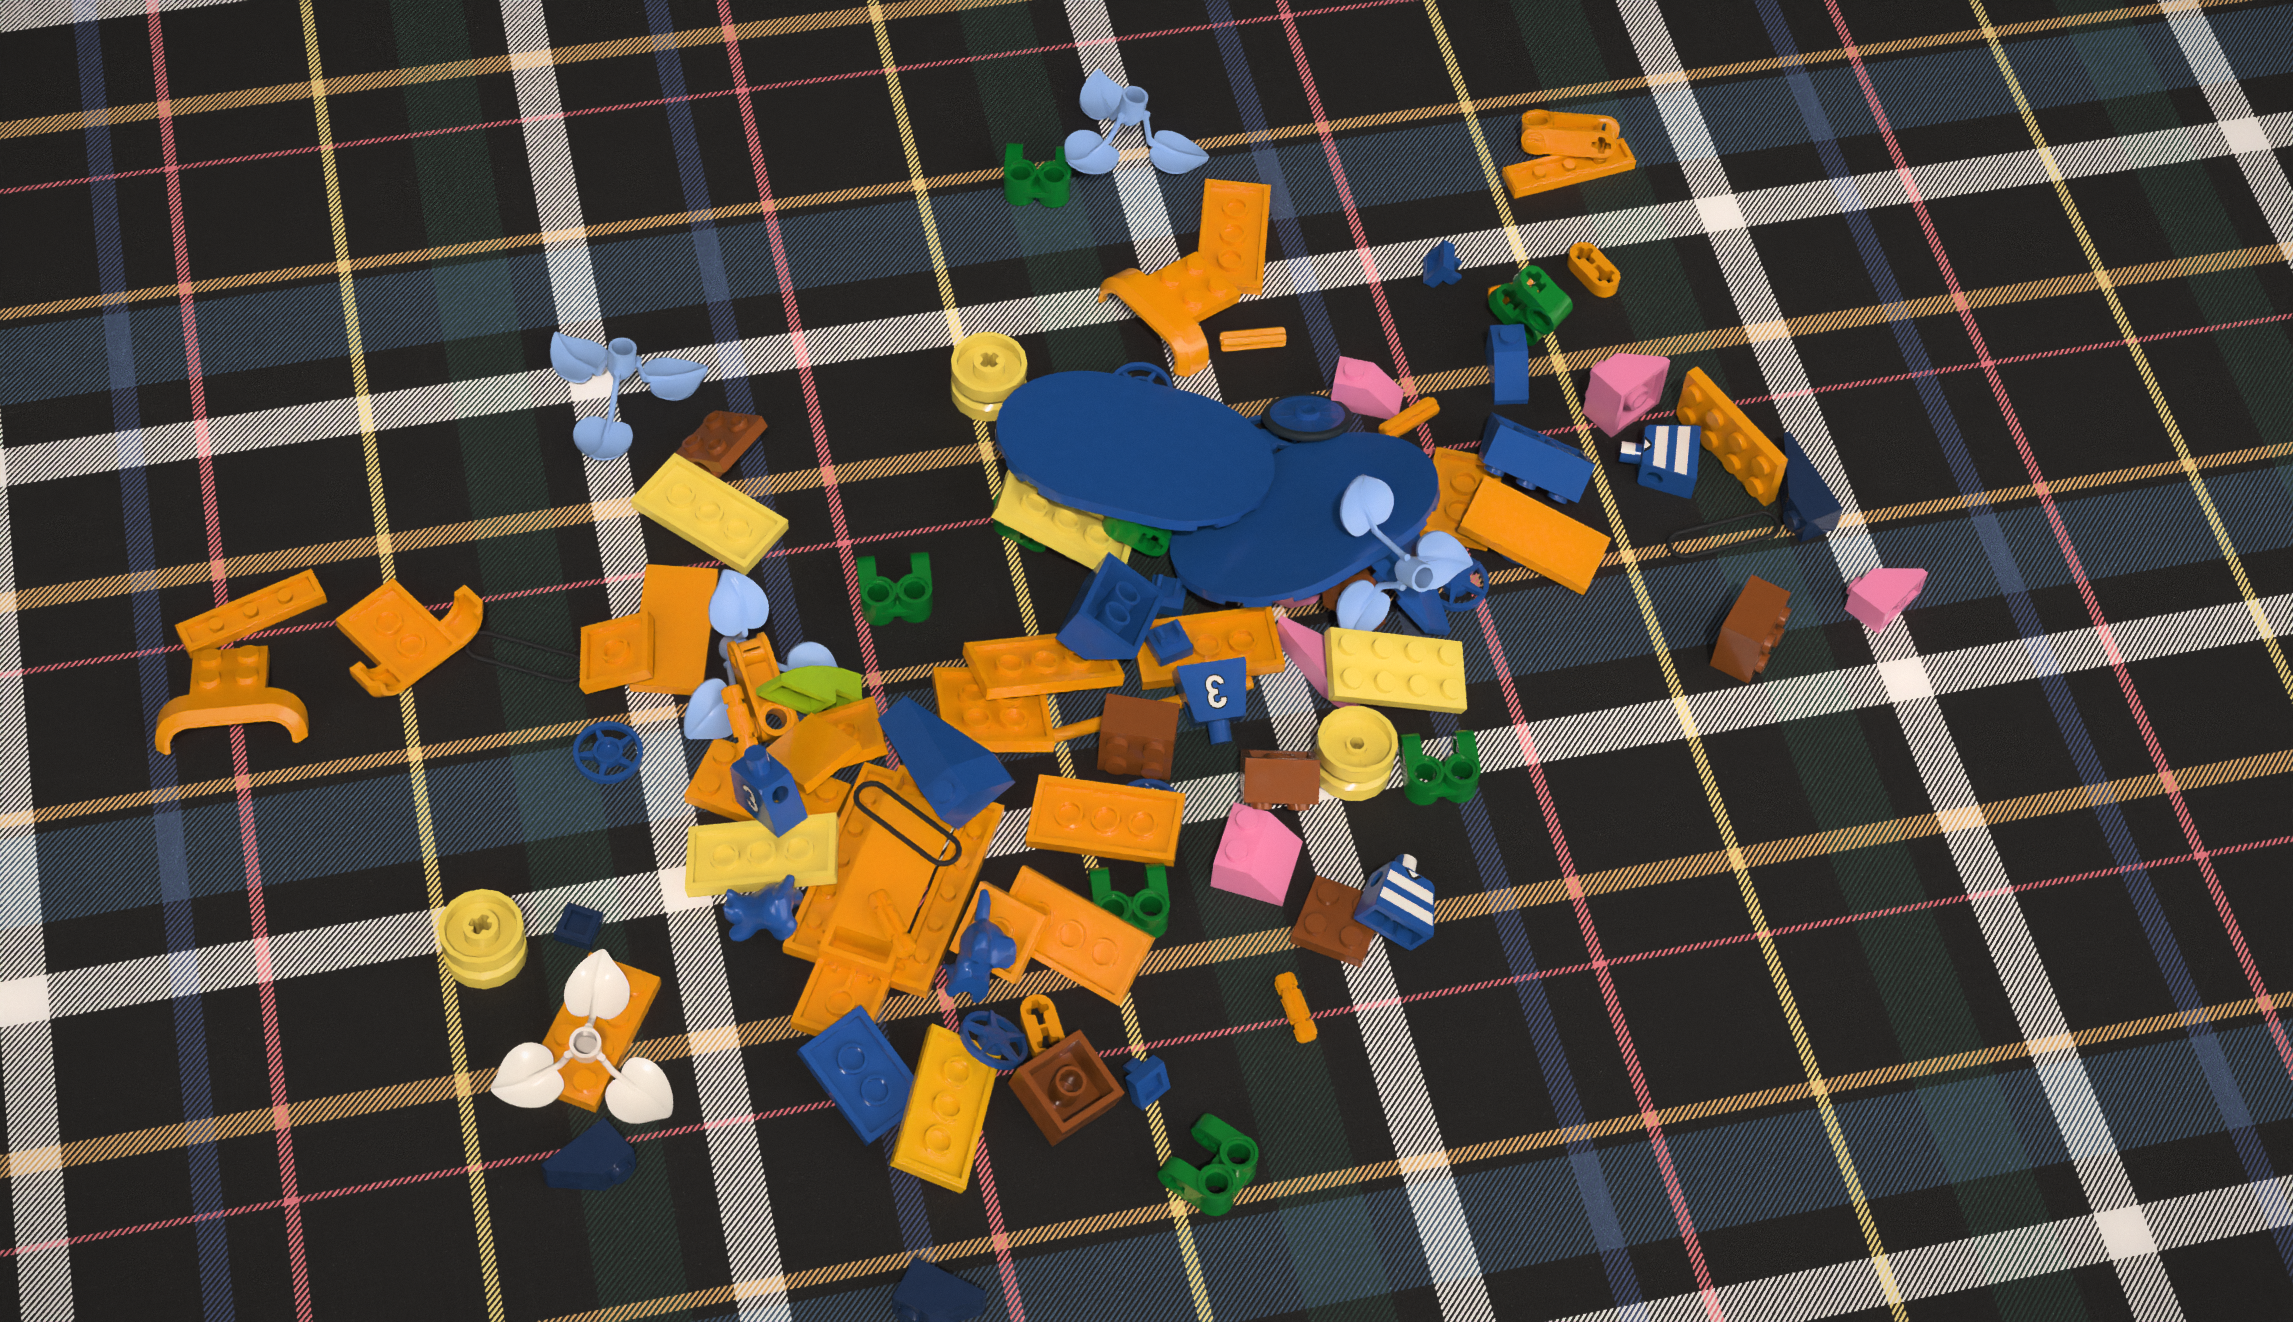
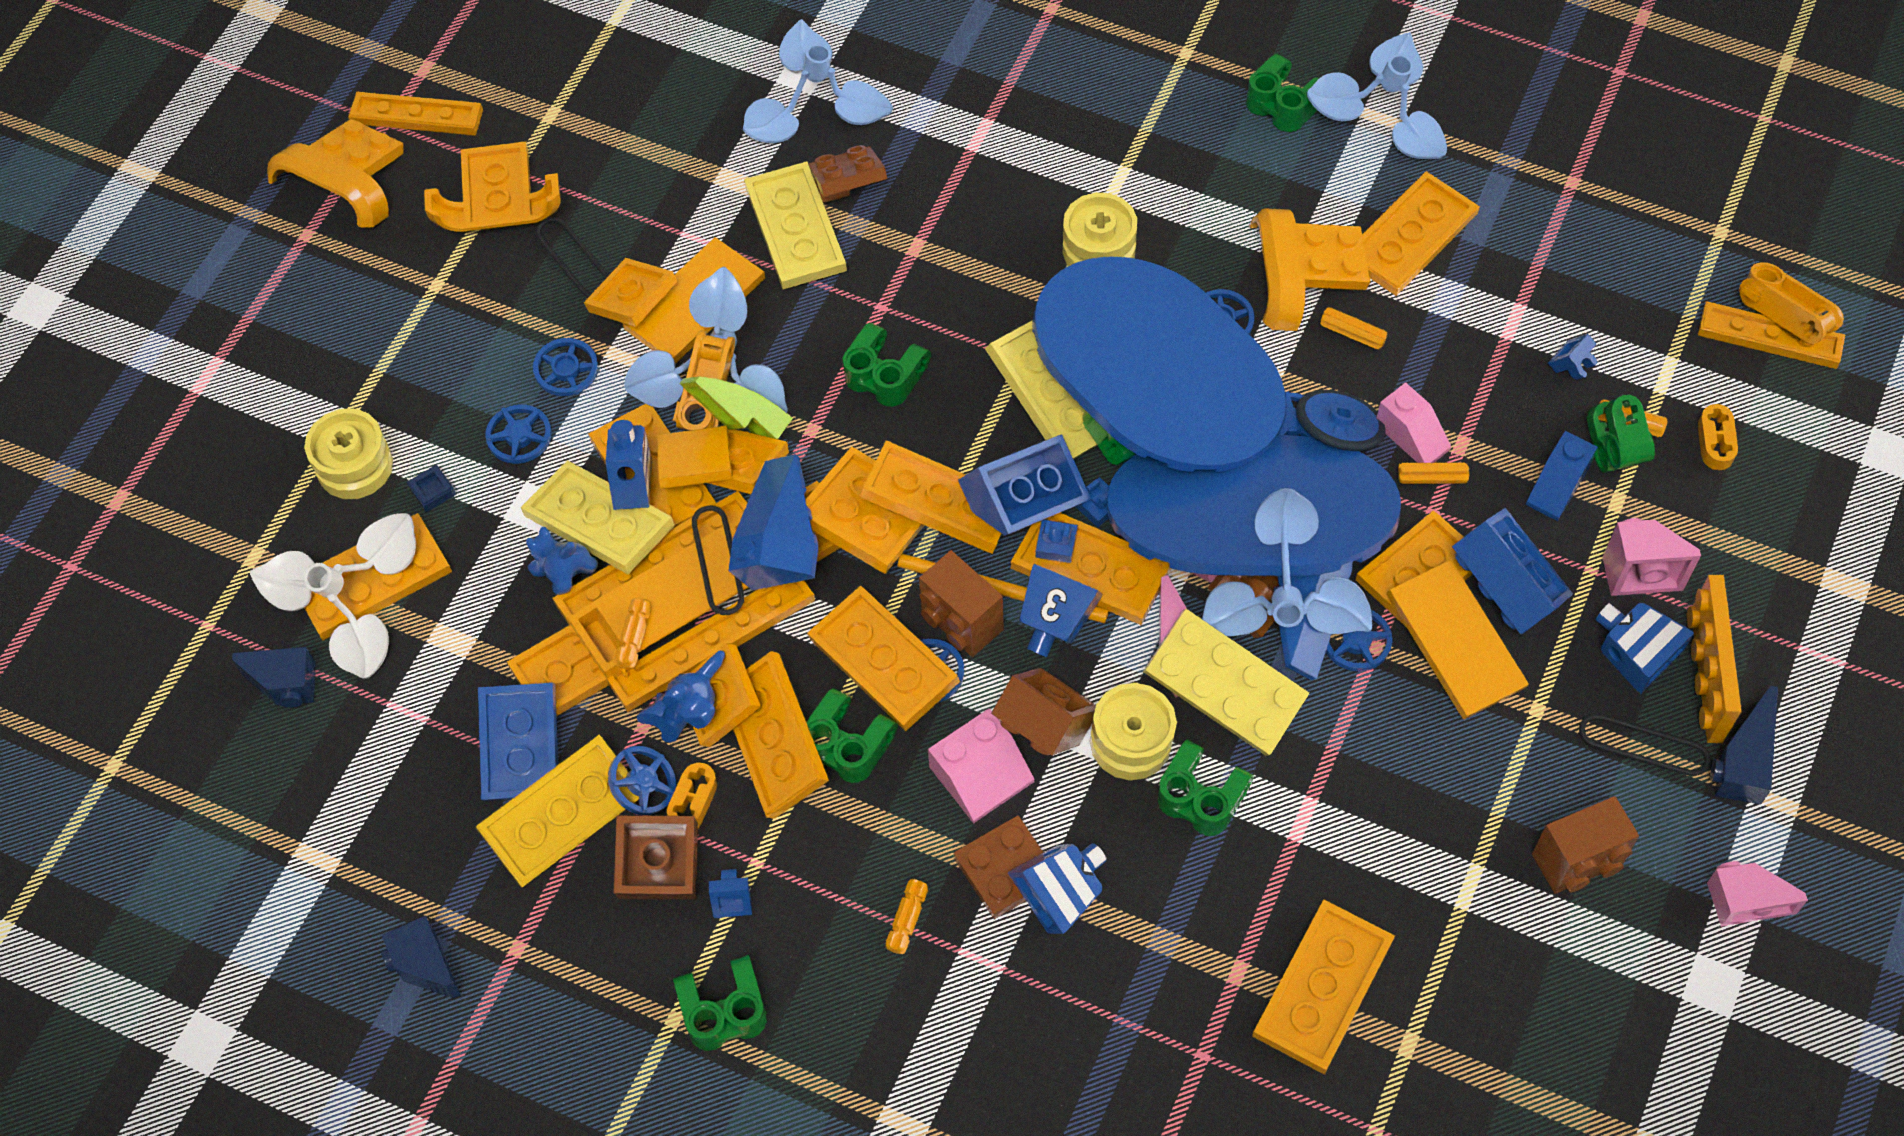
camera: 45 degrees right, 5 degrees up
(616, 833) = (518, 433): none -> blue wheel
(739, 717) = (664, 398): light orange axle -> none
(1647, 853) = (1323, 986): none -> light orange plate

